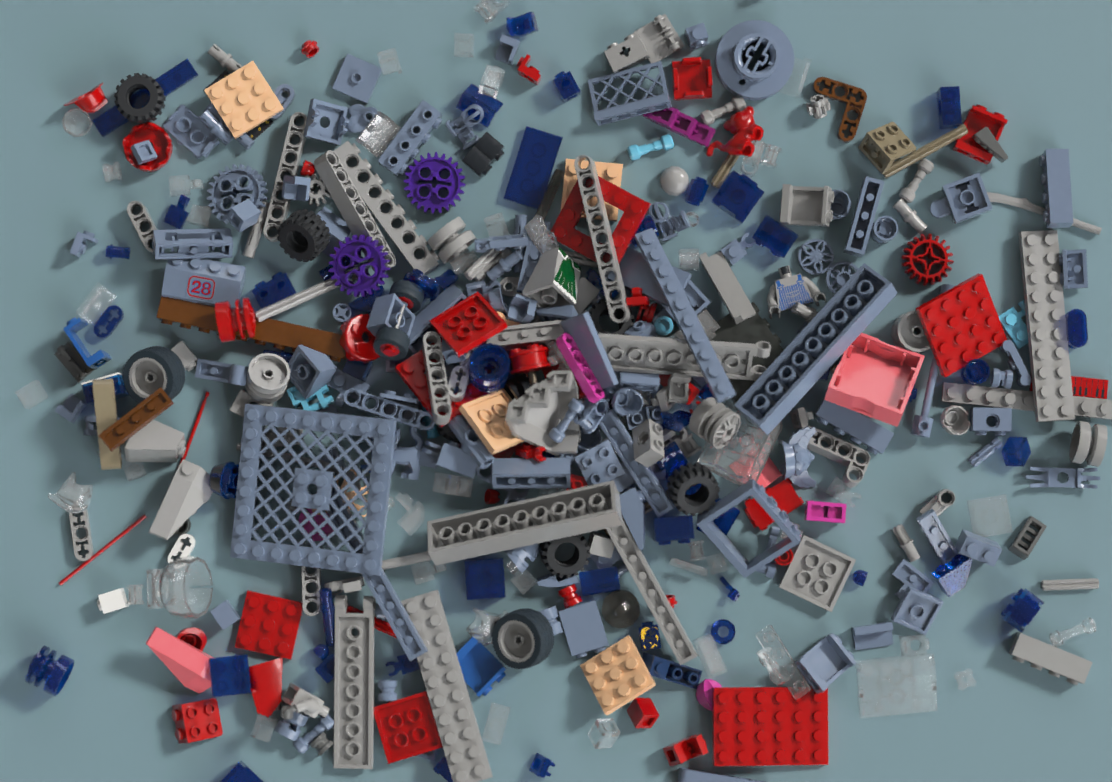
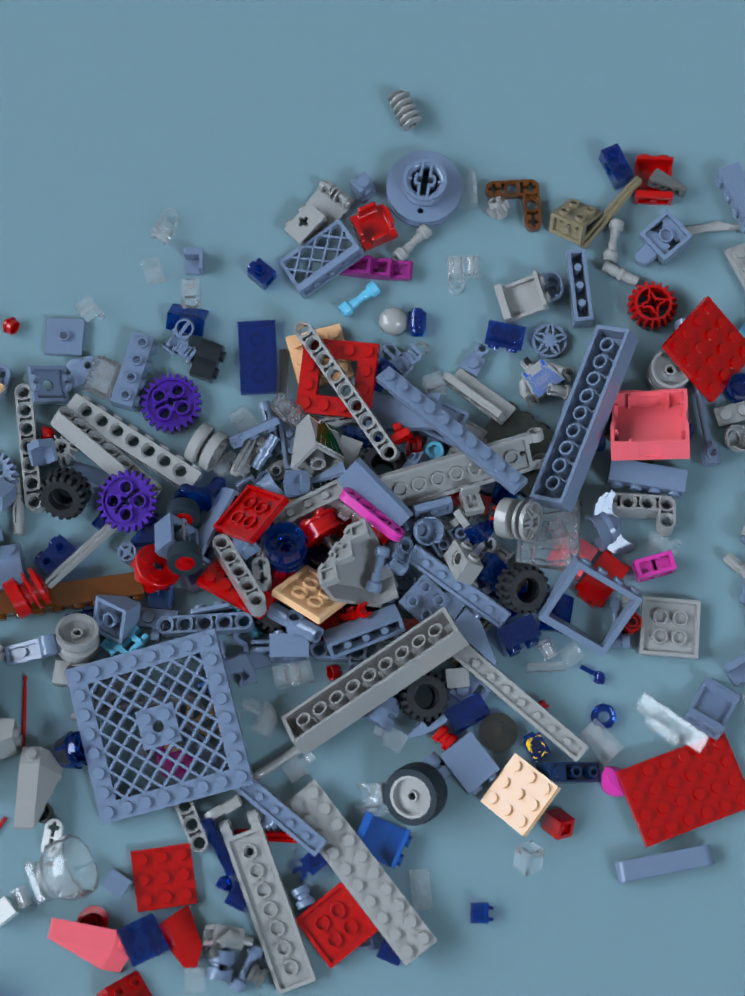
camera: 20 degrees left, 10 degrees down
(485, 579) = (357, 752): clear blue brick -> none
(522, 25) = (200, 234): clear blue bracket -> none
(529, 73) = (221, 274): red bracket -> none
(685, 749) = (613, 842): red brick -> none
(724, 170) = (436, 287): dark tan axle -> none
(738, 196) = (456, 313): clear blue panel -> none
(744, 131) = (440, 254): red animal -> none
(800, 418) = (594, 489): light grey tile -> none
(842, 276) = (580, 349): sand blue wheel -> none
(859, 577) = (711, 616): clear blue hinge -> none
(884, 229) = (602, 292): sand blue wheel -> none

